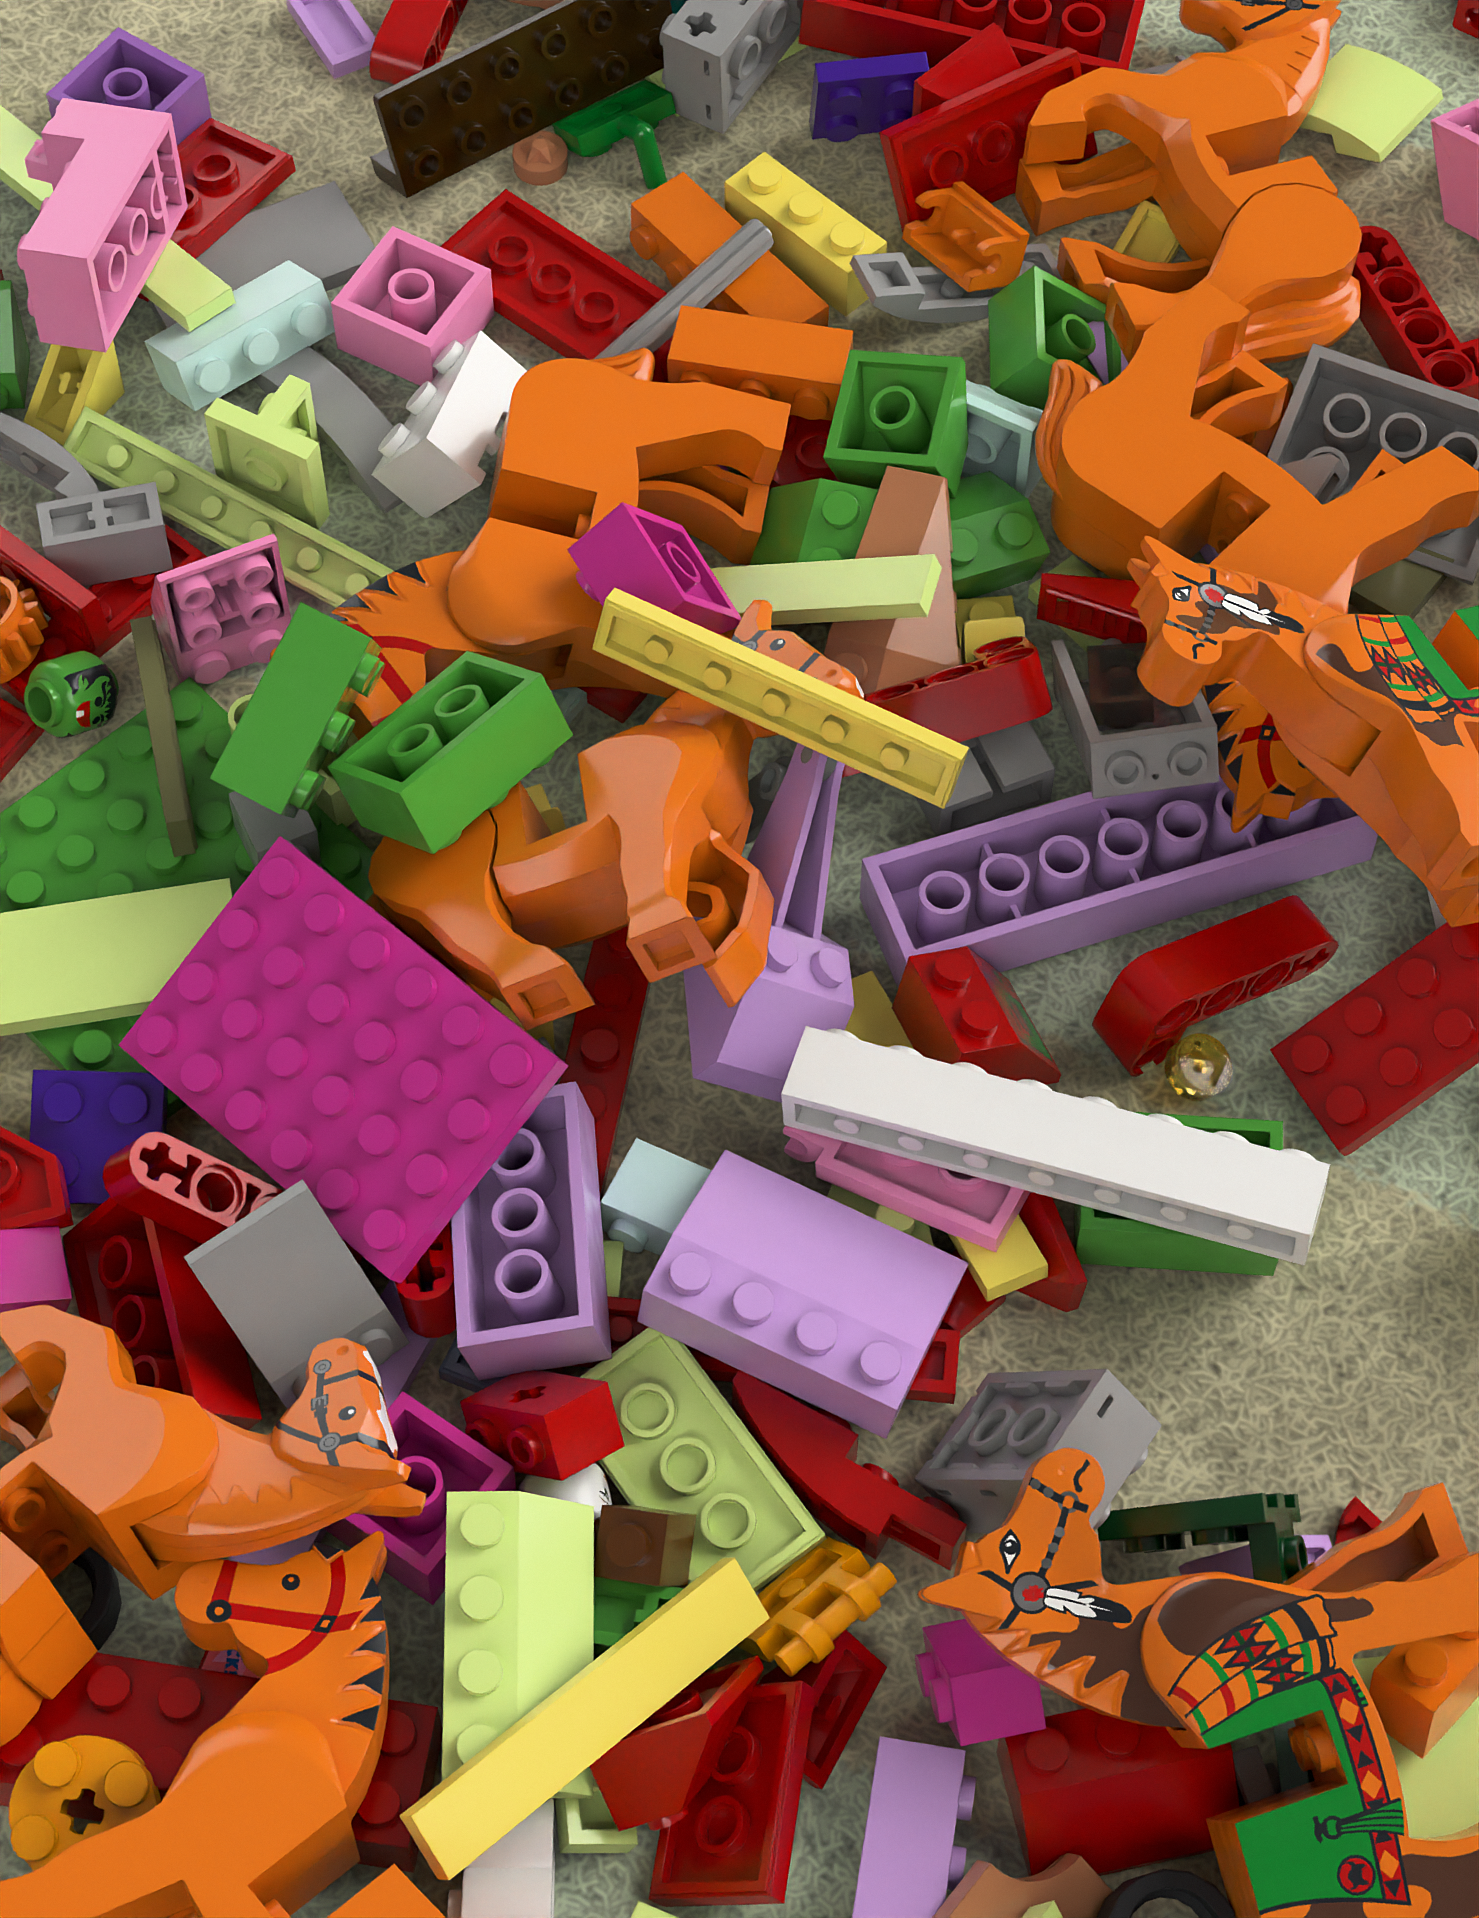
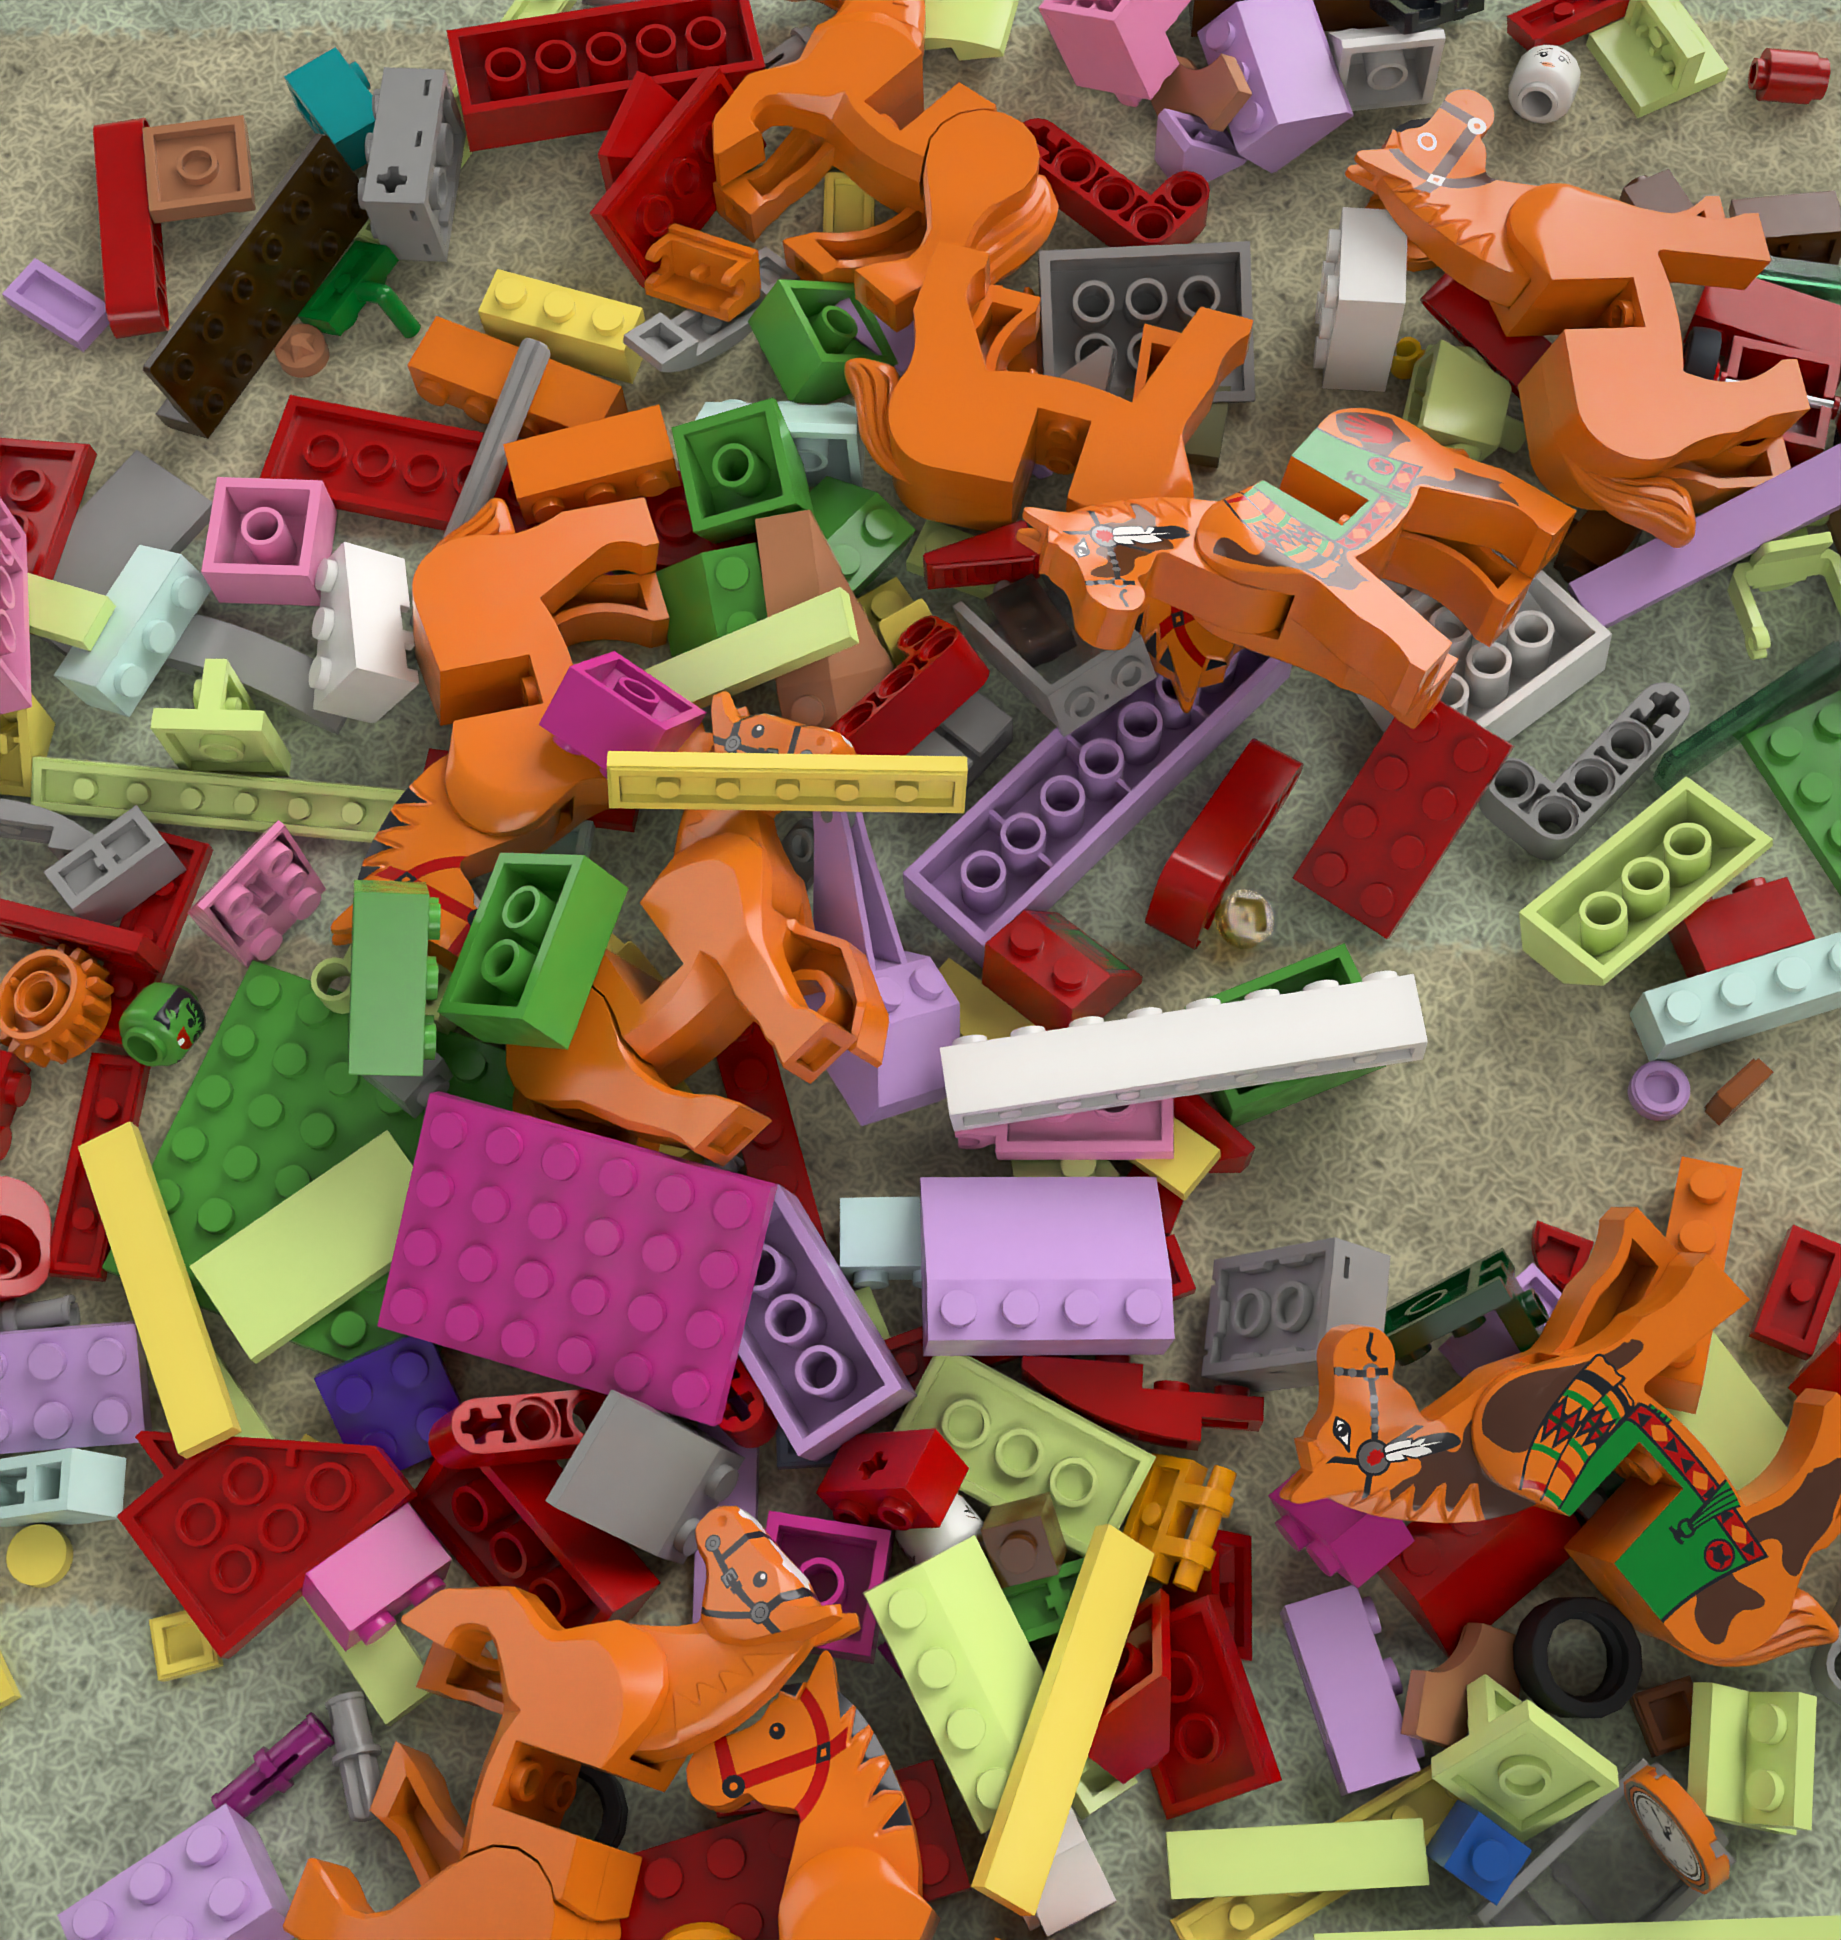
camera: 20 degrees left, 10 degrees up
(164, 736) = (265, 1029): olive tile -> none
(863, 95) = (556, 180): dark purple plate -> none

